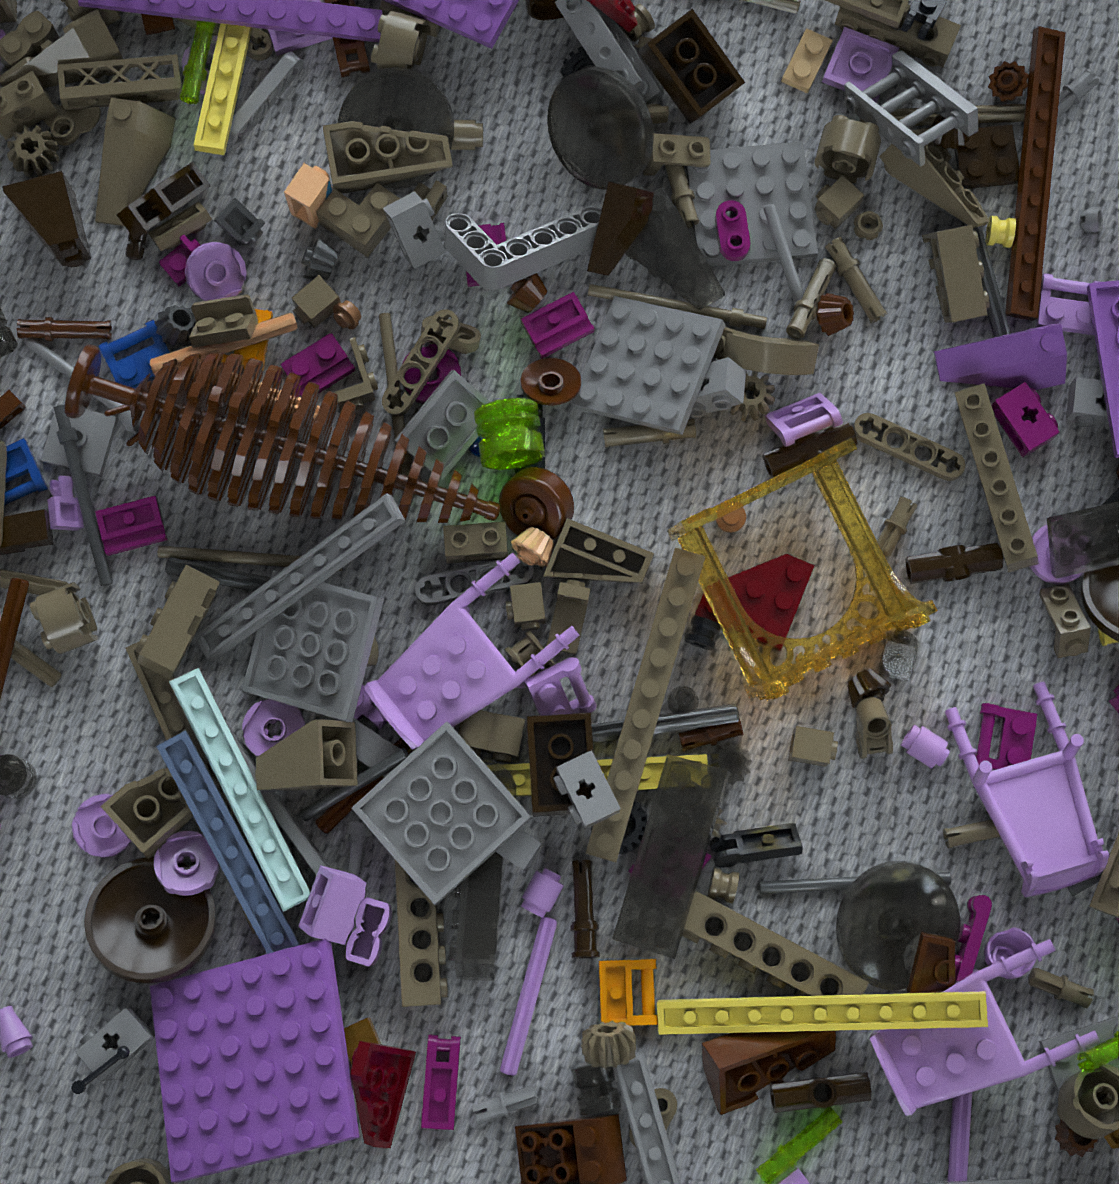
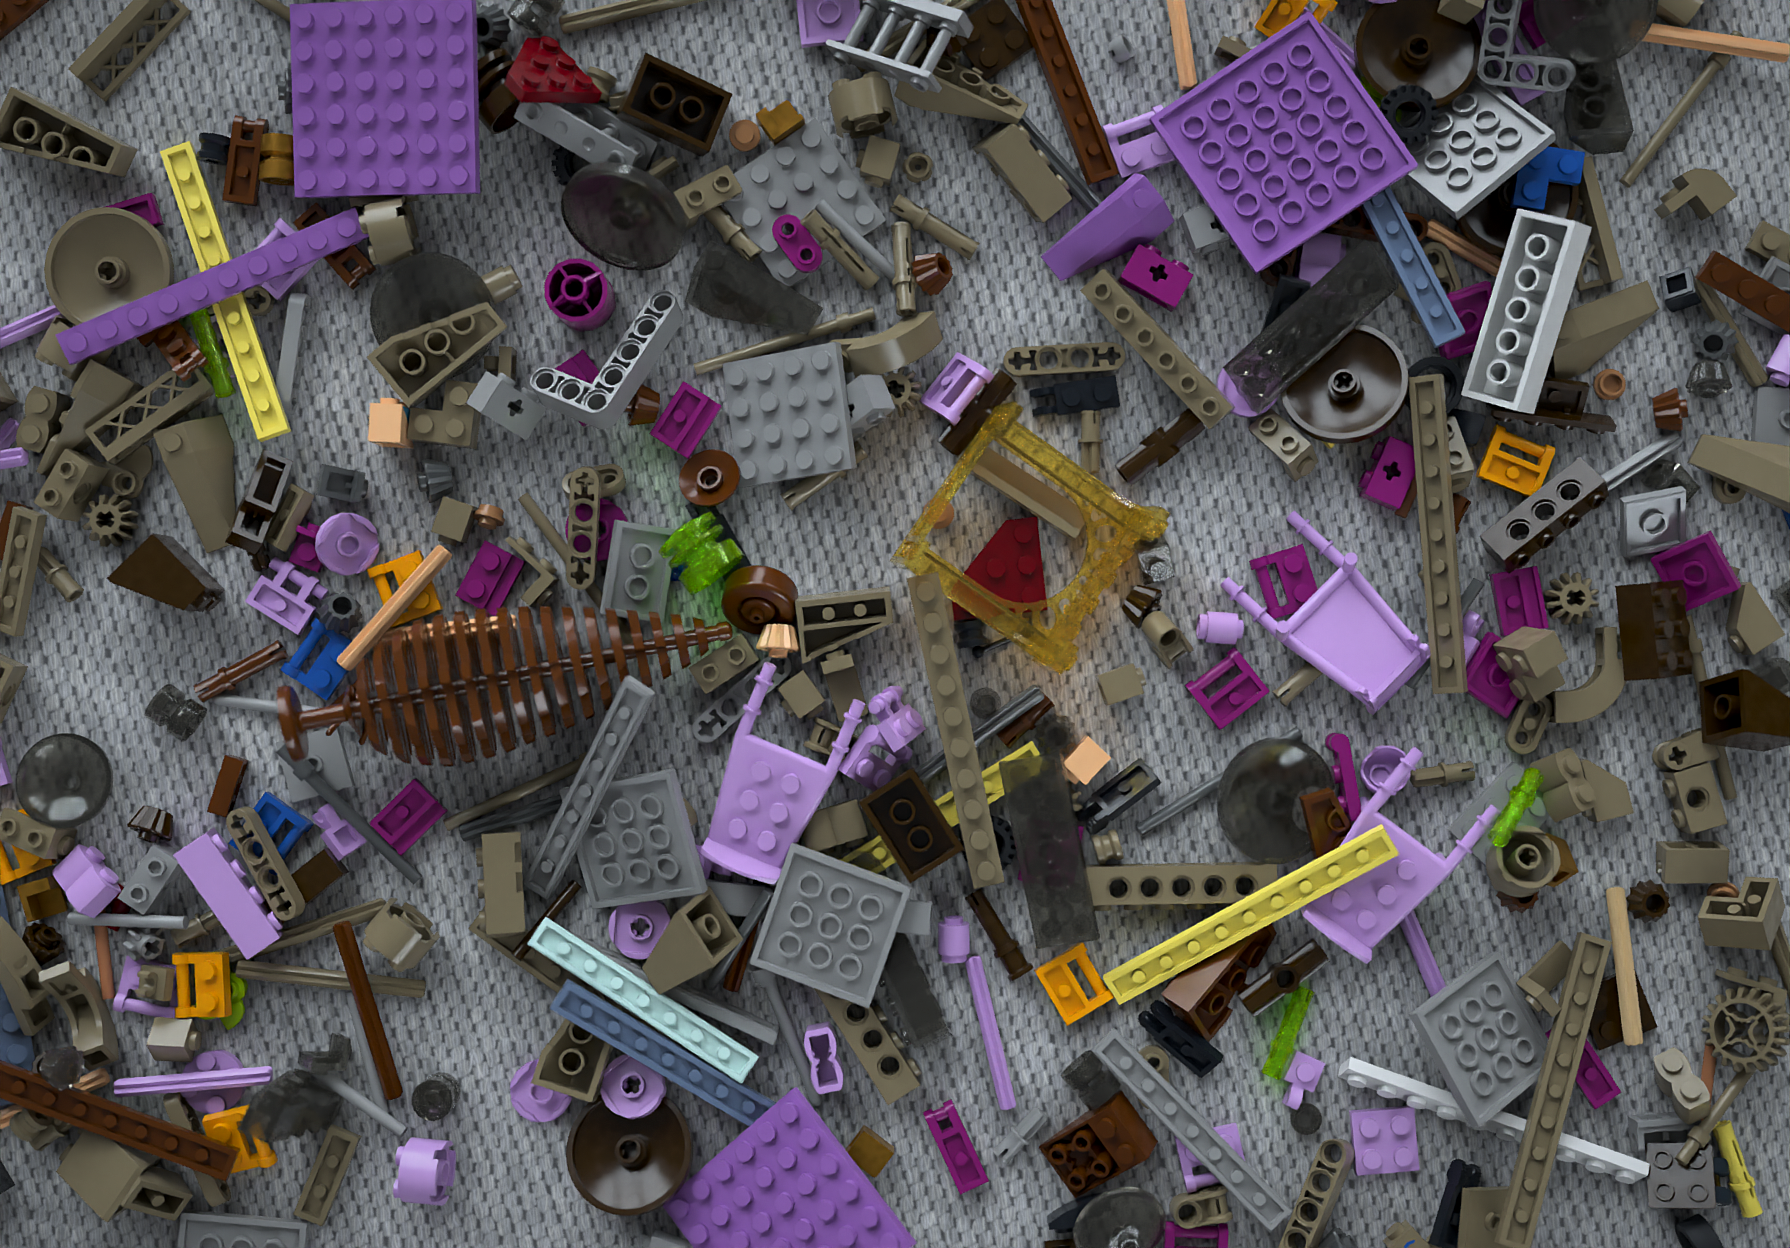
camera: 30 degrees left, 10 degrees up
(131, 293) = (283, 605): none -> lavender plate
(173, 44) = (180, 350): none -> reddish brown plate
(207, 673) = (551, 913): none -> dark brown bar
(223, 320) = (382, 588): dark tan bracket -> none
(332, 905) = (781, 1056): lavender brick -> none
(379, 1087) = (907, 1183): dark red plate -> none
(527, 173) = (588, 309): none -> magenta cylinder
(587, 771) = (966, 843): light grey brick -> none
(596, 671) = (898, 722): none -> lavender plate
(608, 1044) = (1082, 1040): dark tan gear -> none
(620, 222) = (691, 294): dark brown slope -> none
(697, 1097) = (1180, 1039): none -> black hinge
(701, 653) = (979, 651): none -> black hinge
(736, 125) = (744, 135): none -> medium nougat plate
(744, 798) = (1085, 761): none -> light nougat brick
(765, 253) = (839, 249): none -> dark tan pin
(772, 129) = (780, 121): none -> pearl gold panel
(807, 60) = (776, 34): tan plate -> none
(817, 541) = (1029, 493): none -> dark tan fence
(903, 482) = (1078, 396): none -> black hinge
(906, 814) = (1234, 696): none -> magenta plate
(1000, 231) = (1043, 107): light yellow wheel -> none

